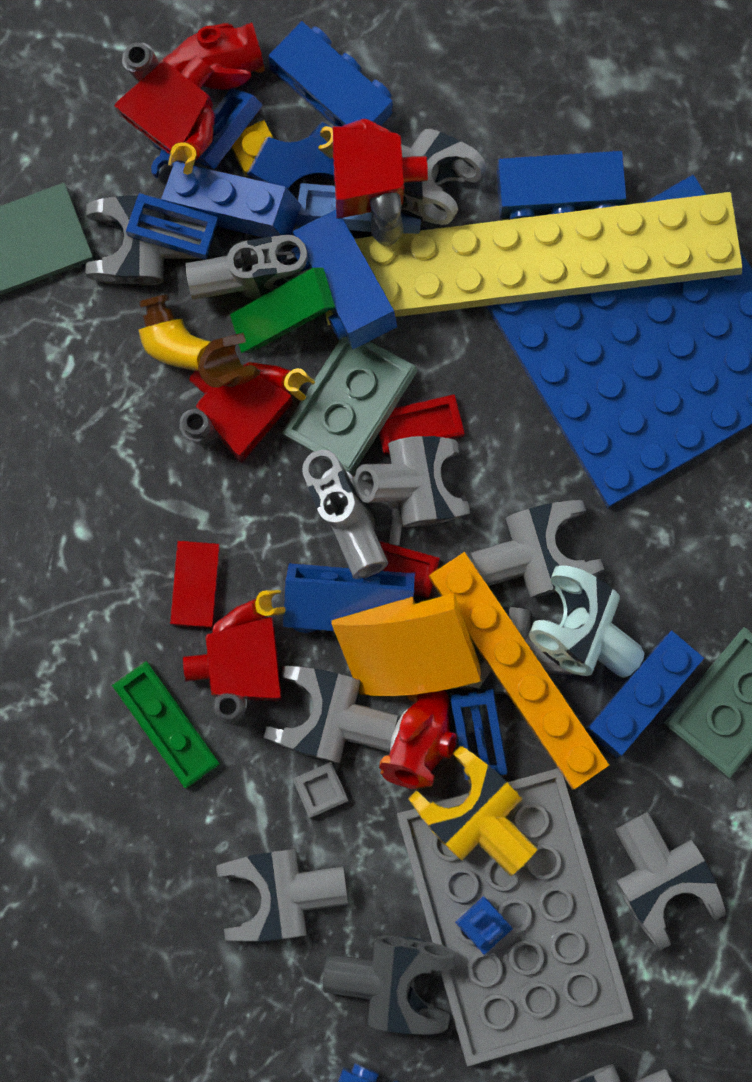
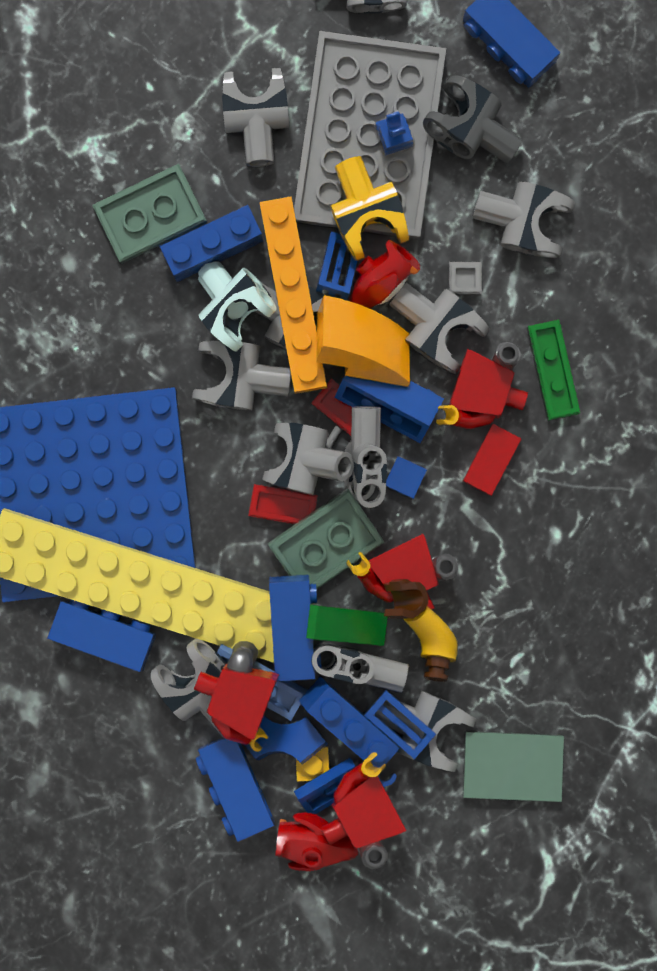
camera: 155 degrees left, 5 degrees up
(289, 519) = (405, 477): none -> blue tile

